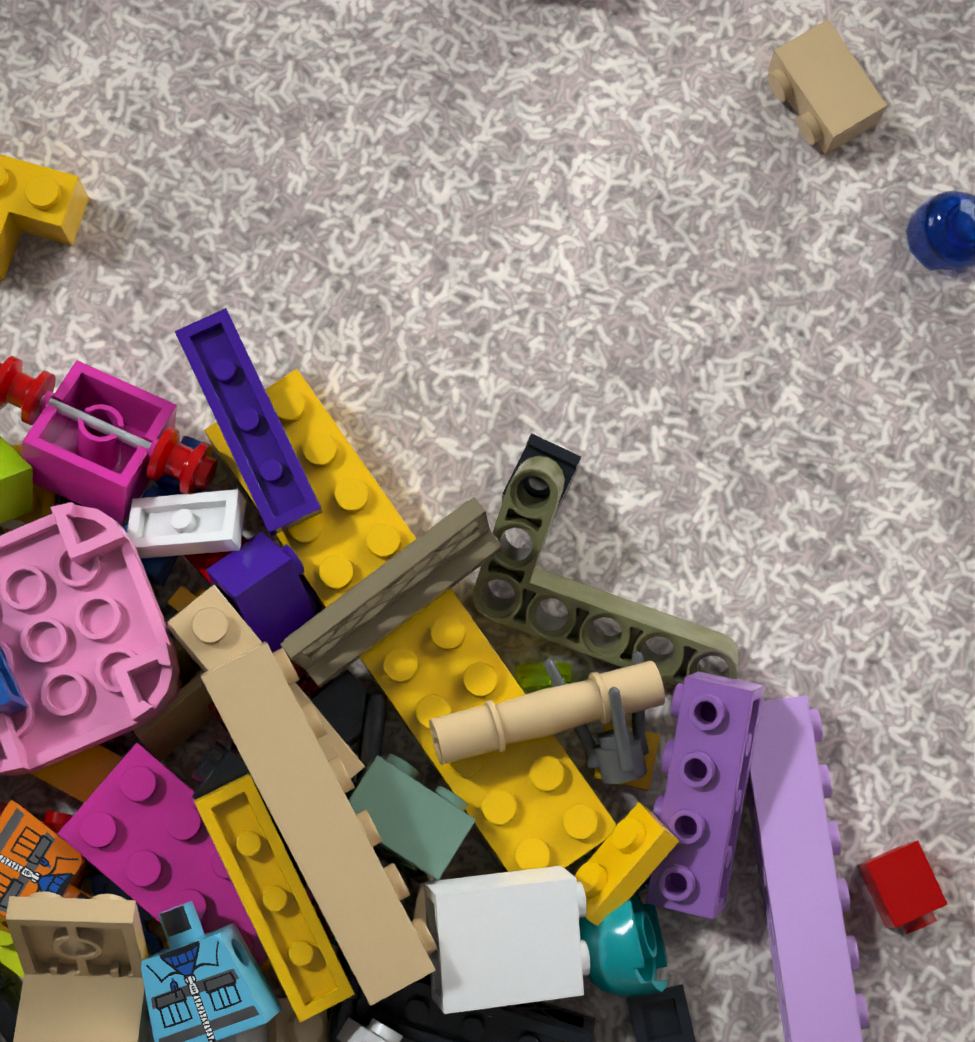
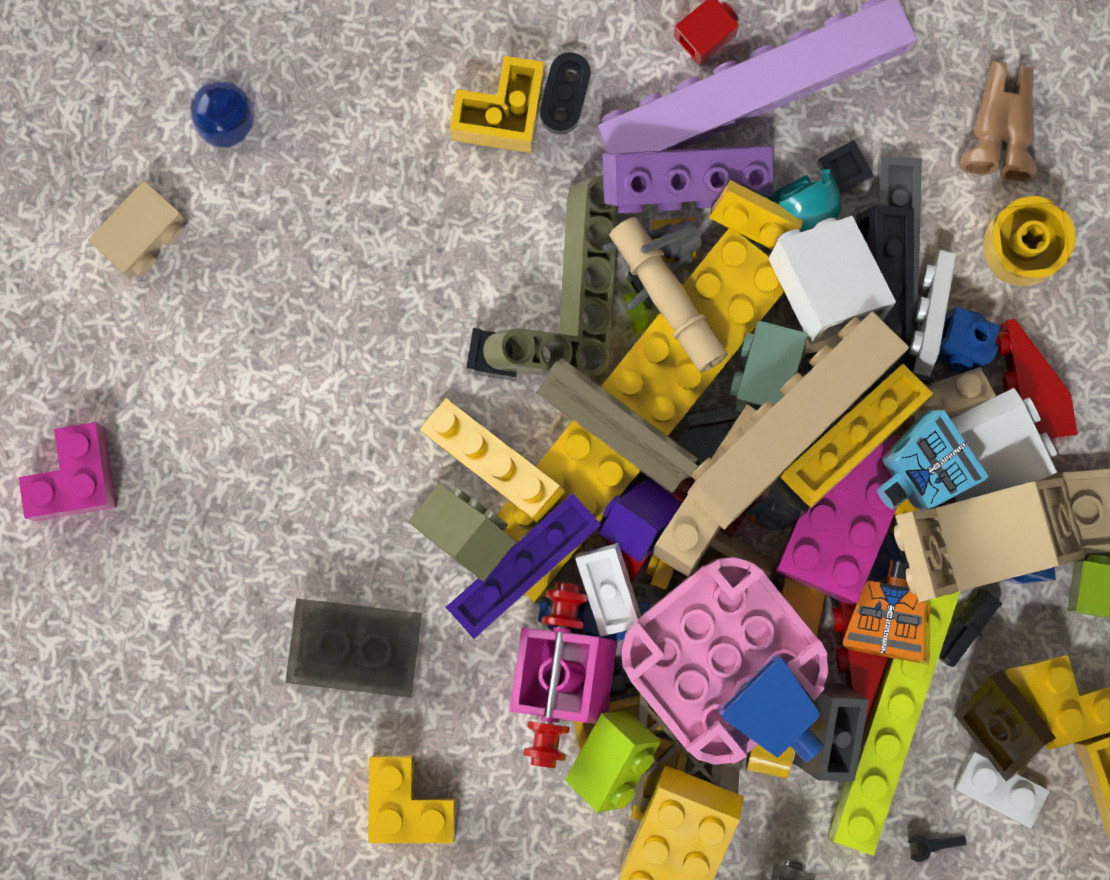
camera: 105 degrees left, 5 degrees up
(220, 202) = (355, 648): none -> clear smoke brick
(318, 361) = (463, 530): none -> olive brick
(399, 431) = (492, 461): none -> yellow plate
(854, 590) = (504, 118): none -> yellow brick
(864, 668) = (565, 94): none -> black plate

